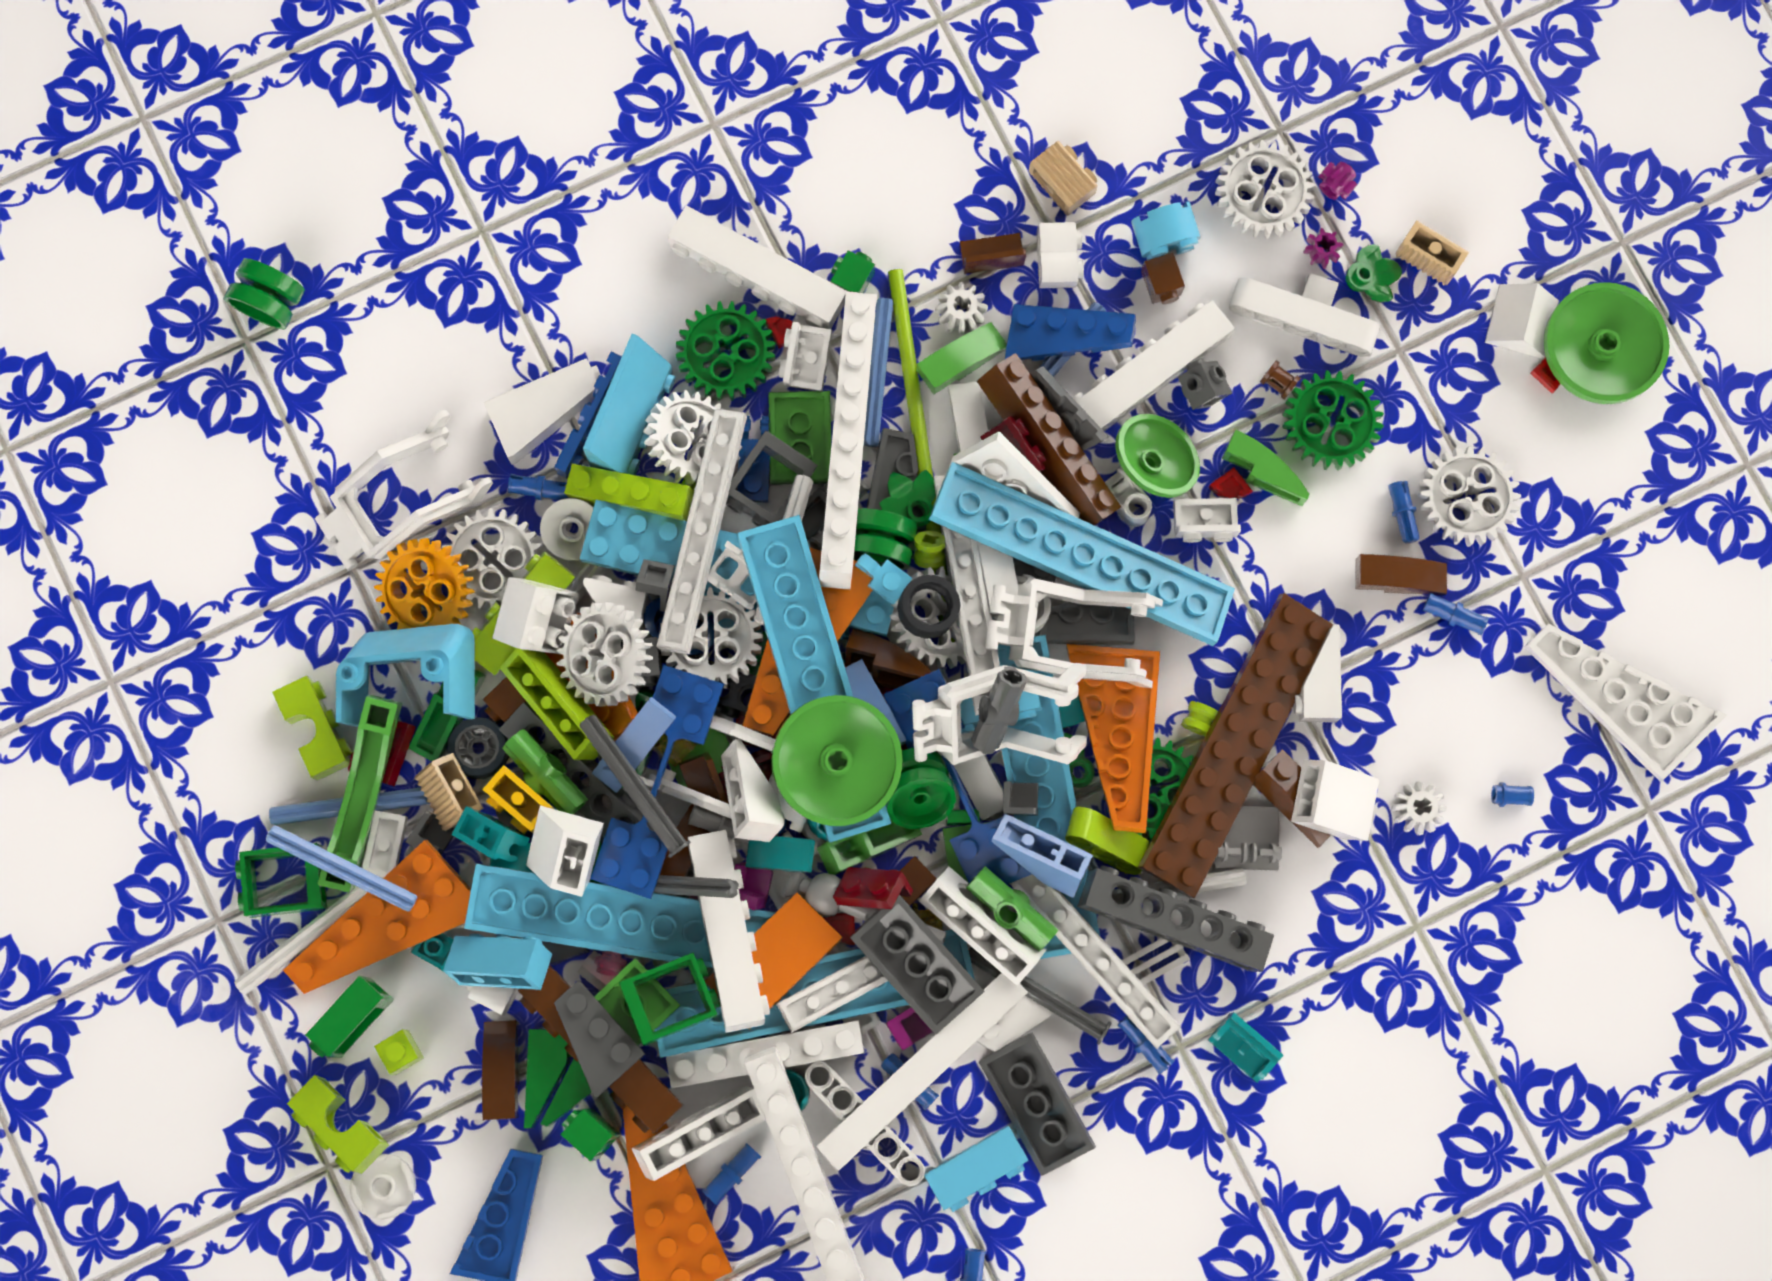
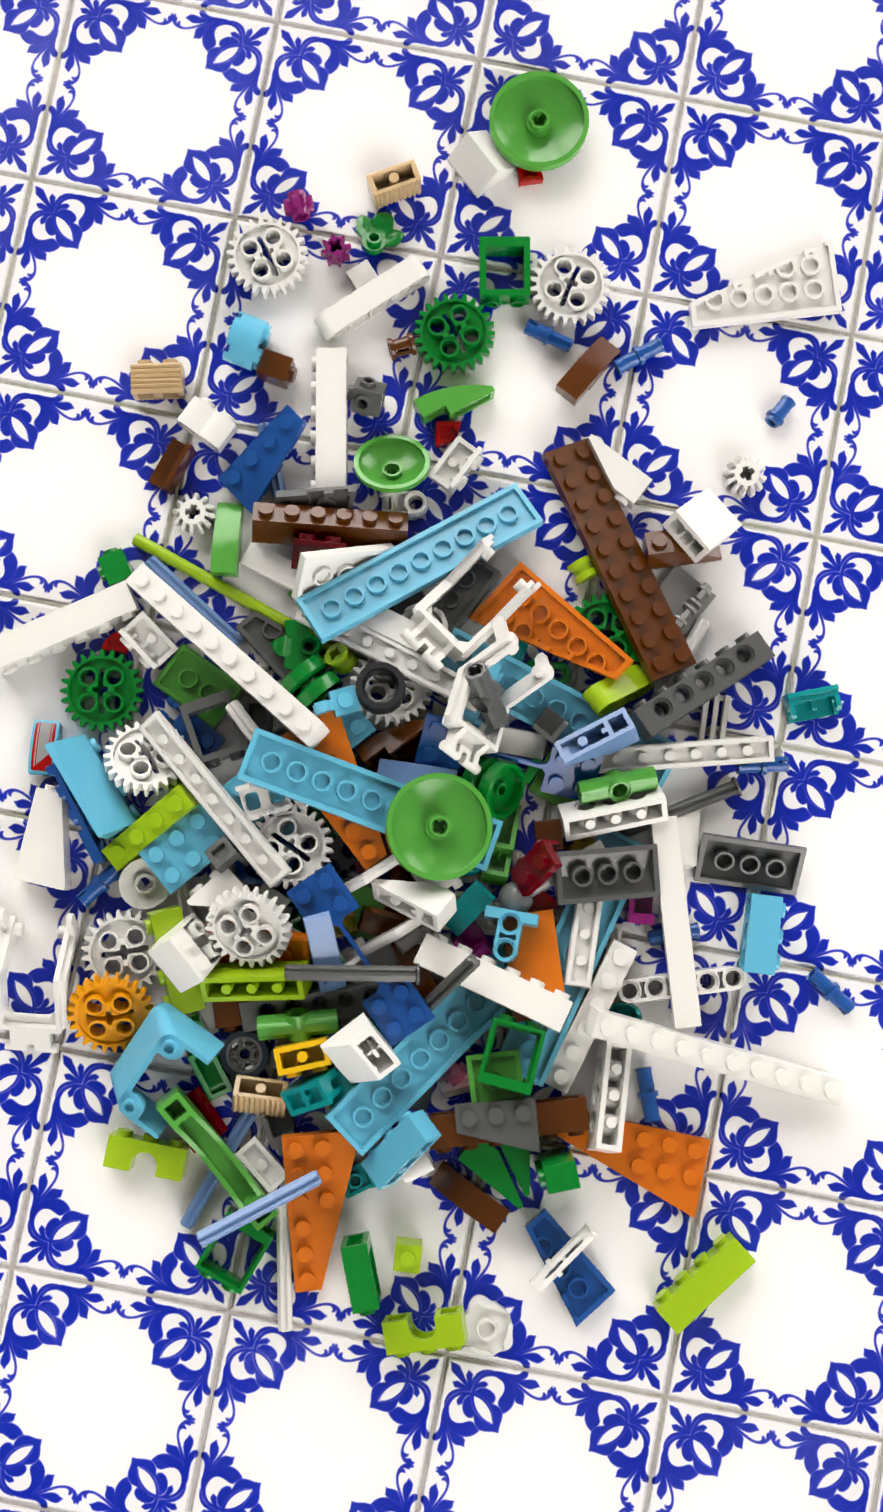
camera: 50 degrees left, 5 degrees up
(468, 1202) = (540, 1280): none -> white pin
(616, 340) = (42, 733): none -> slope
(784, 917) = (509, 937): none -> medium azure tile
(1454, 401) = (504, 247): none -> green window

